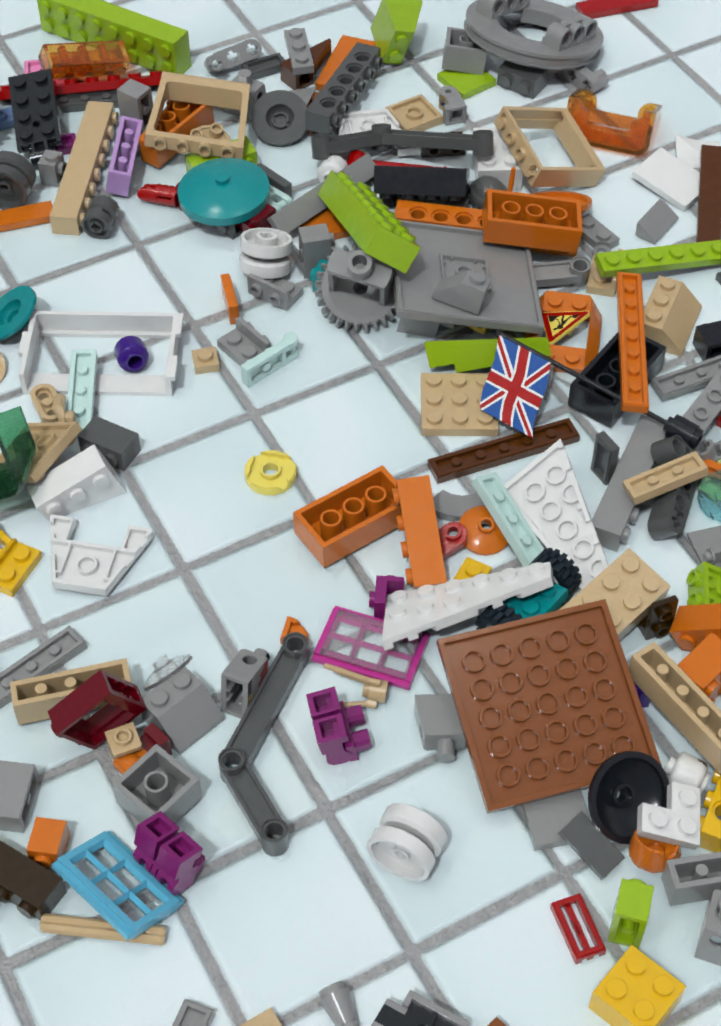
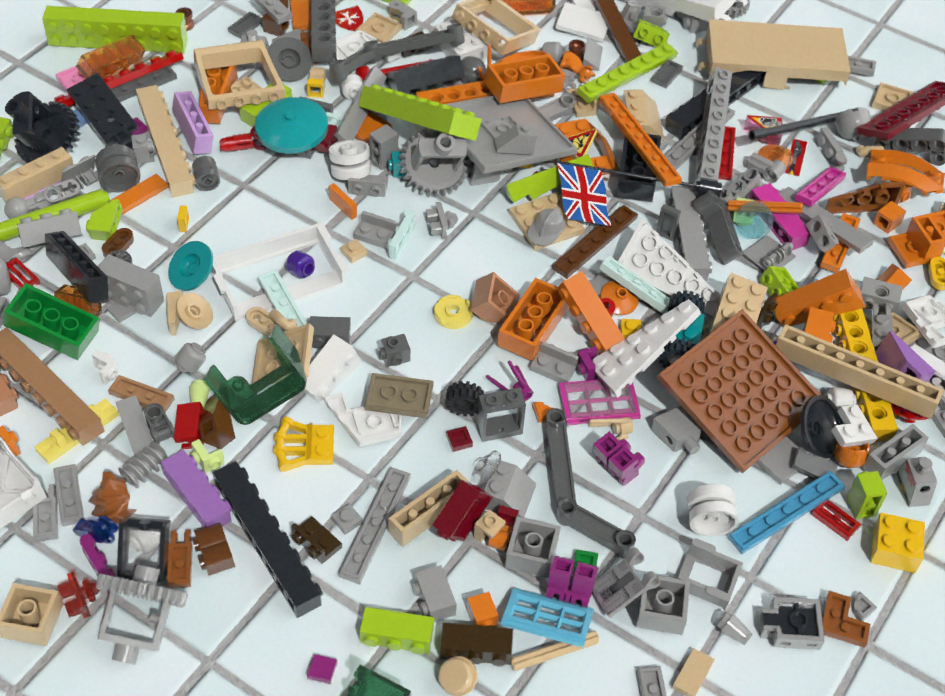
camera: 30 degrees left, 0 degrees up
(42, 259) = (183, 218): none -> yellow tile
(132, 545) = (399, 395): none -> dark tan tile
(135, 101) = (174, 79): light grey brick -> none
(164, 491) = (395, 350): none -> dark grey brick
(171, 625) = (459, 439): none -> dark red tile
(199, 40) = (188, 15): none -> copper wheel
(202, 578) = (463, 398): none -> black tyre
(213, 626) = (511, 424): none -> dark grey window
(215, 839) = (585, 557): none -> green tile
(230, 886) = (622, 585): none -> light grey flag
(240, 49) = (211, 29): light grey beam -> none
(243, 671) = (540, 444): light grey torso -> none
(265, 933) = (664, 606): none -> light grey brick
(282, 597) = (522, 383): none -> magenta plant
(298, 151) = (316, 80): none -> yellow leg
(322, 471) = (493, 299): none -> nougat slope
(329, 359) = (443, 220): none -> light grey hips
(346, 580) = (554, 363): none -> light grey bracket
(364, 892) = (706, 554): none -> light grey piece
(388, 92) = (349, 18): none -> red sticker
(447, 411) = (546, 227): none -> light grey piece
(513, 888) = (786, 512): none -> dark azure tile
(605, 203) = (555, 49): none -> light grey head
(621, 222) = (573, 63): none -> orange animal
(636, 208) = (577, 47): none -> copper wheel
(665, 477) = (717, 221): tan plate -> none

